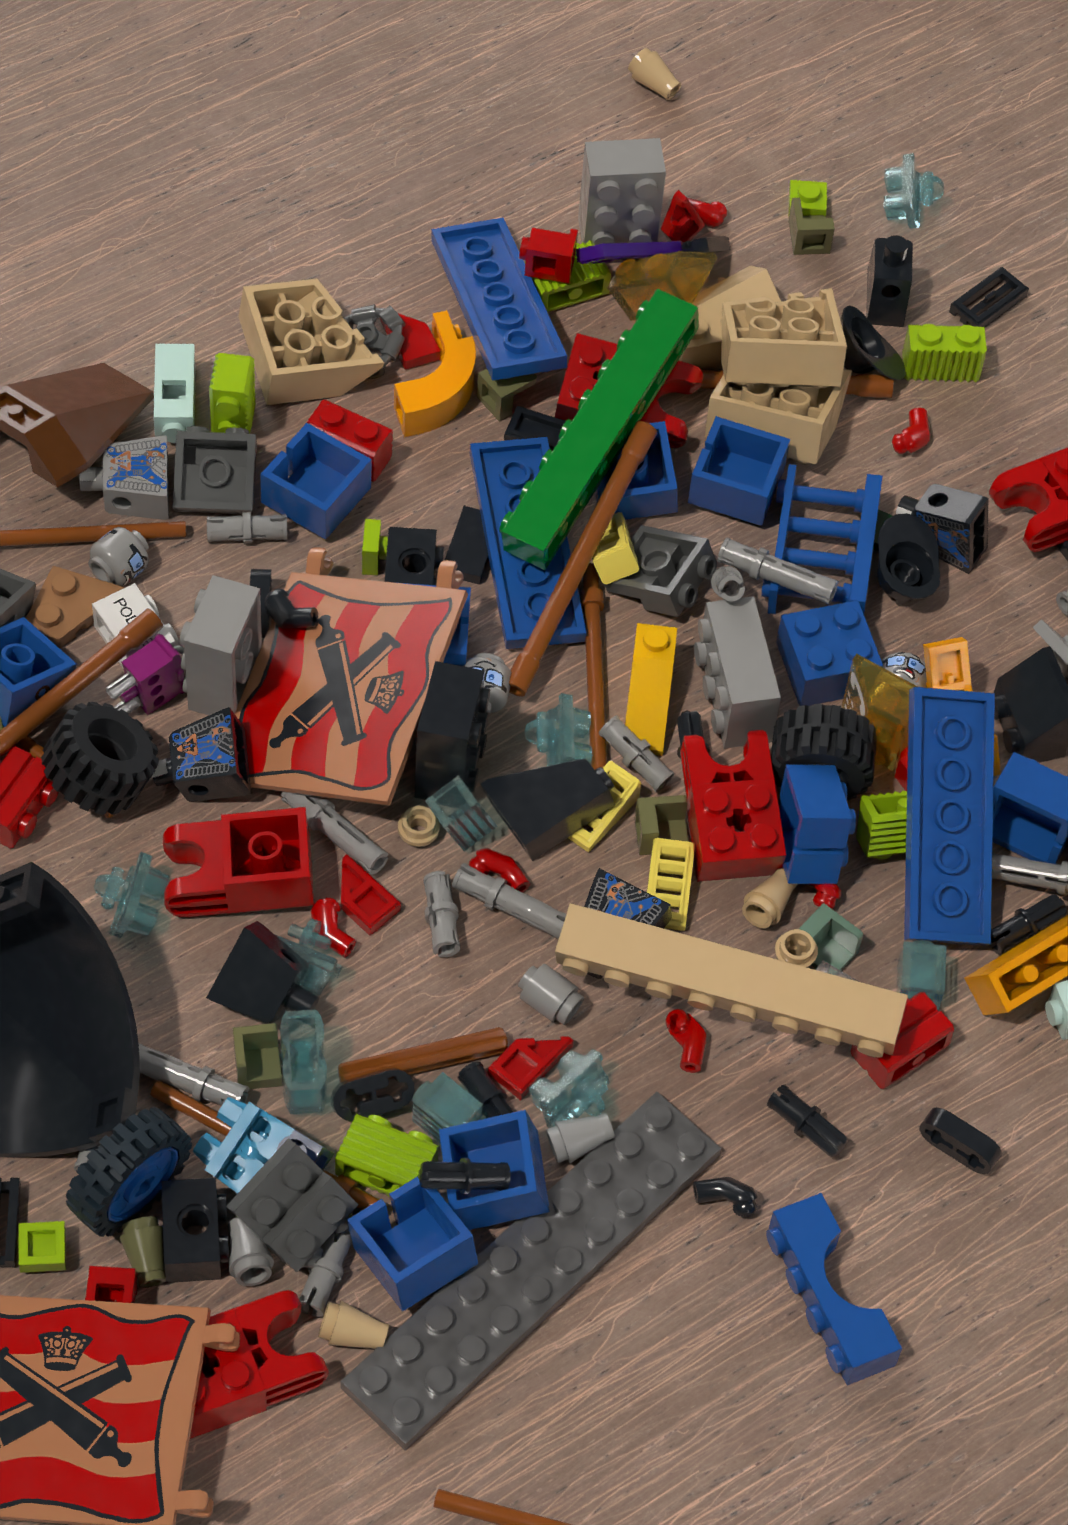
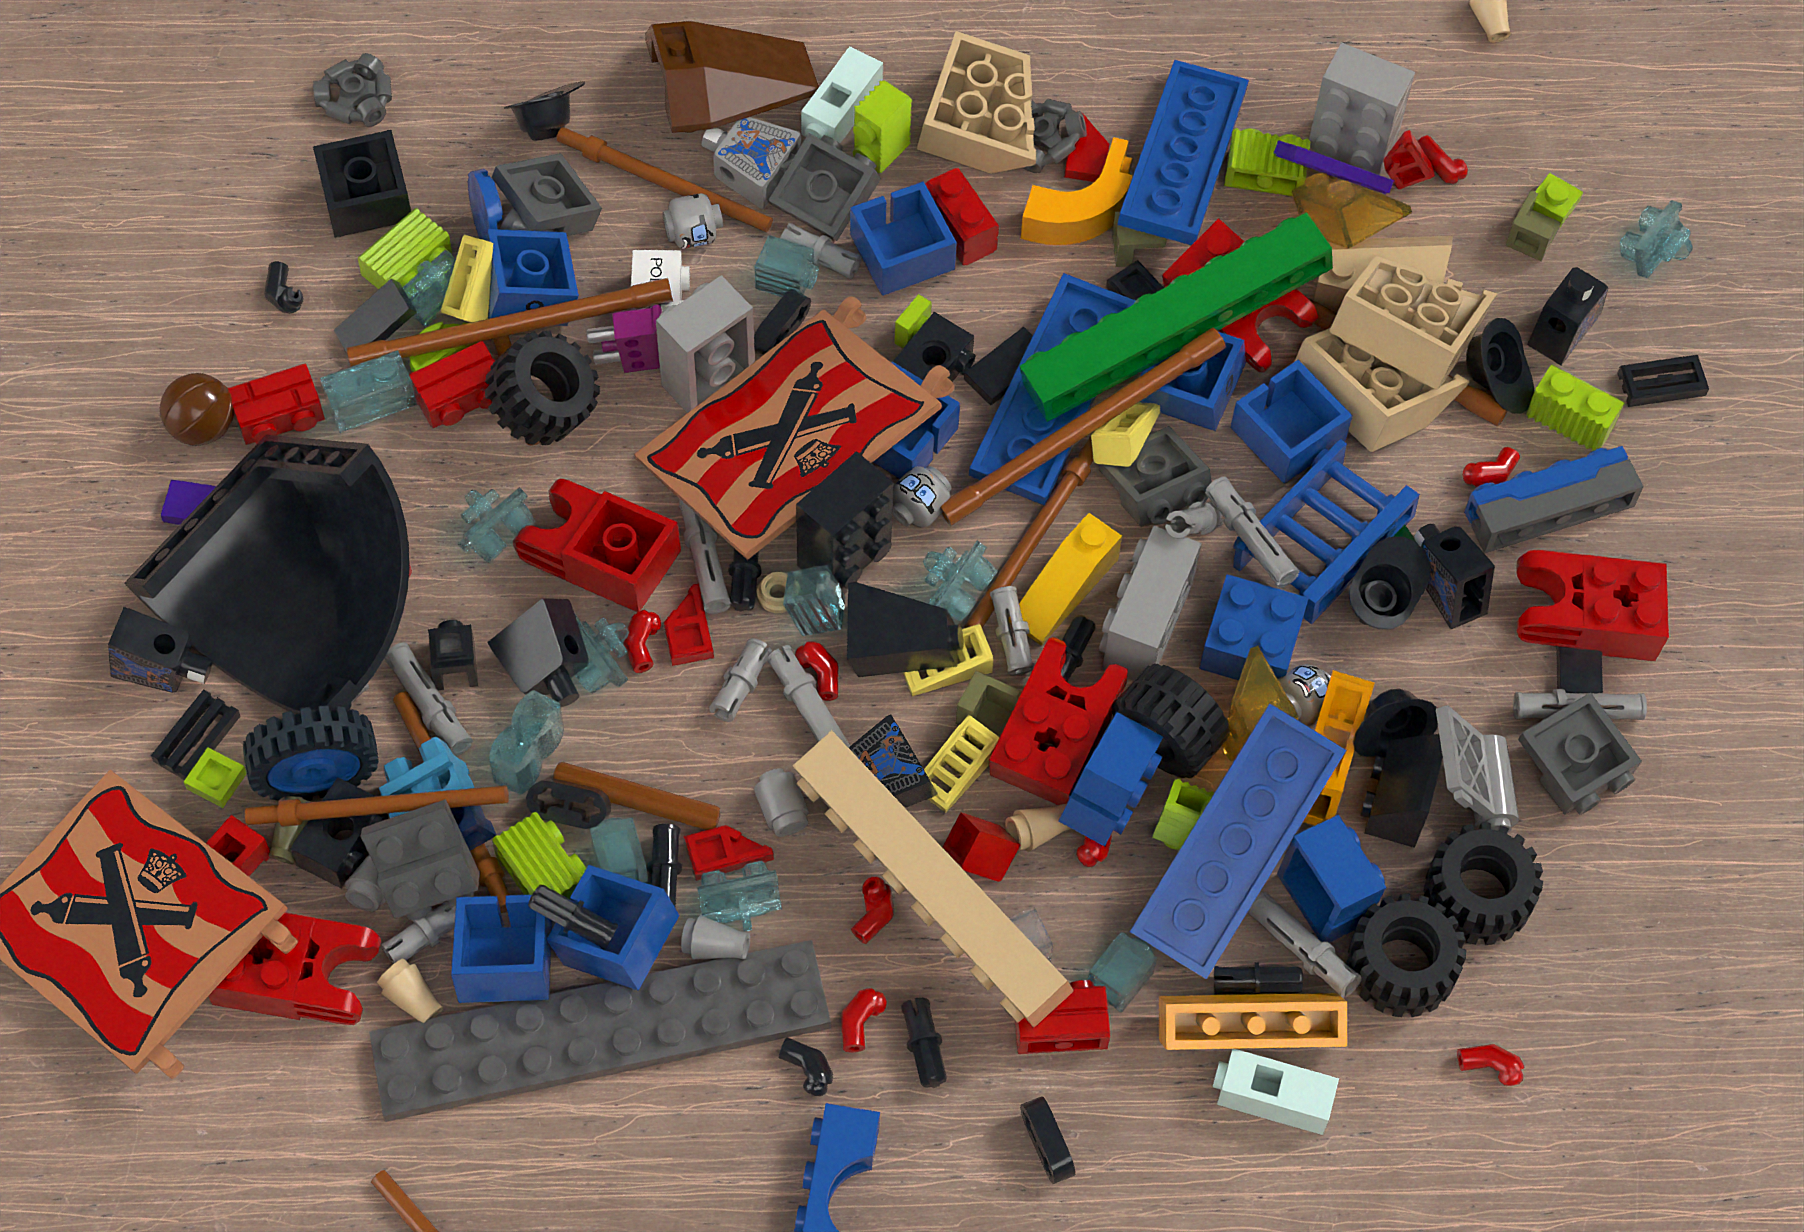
camera: 35 degrees right, 5 degrees up
(66, 604) = (611, 241): medium nougat wing -> none
(146, 1232) = (293, 812): none -> dark orange bar
(177, 1023) = (452, 652): none -> black window
(207, 759) = (637, 436): black torso -> none
(231, 553) = (785, 267): none -> clear light blue brick
(257, 1056) = (490, 712): olive panel -> none
(286, 615) = (787, 343): black arm -> none
(379, 824) = (744, 581): none -> black axle
(549, 254) = (1252, 133): red brick -> none
(707, 244) = (1419, 197): black tile -> none
(735, 1131) = (856, 1013): none -> red arm
(740, 933) = (981, 847): none -> red panel
(796, 948) = (1015, 888): tan cone -> none
(835, 937) = (1059, 893): sand green panel -> none
(977, 428) = (1553, 498): none -> dark grey piece
(991, 658) = (1391, 717): none -> black piece

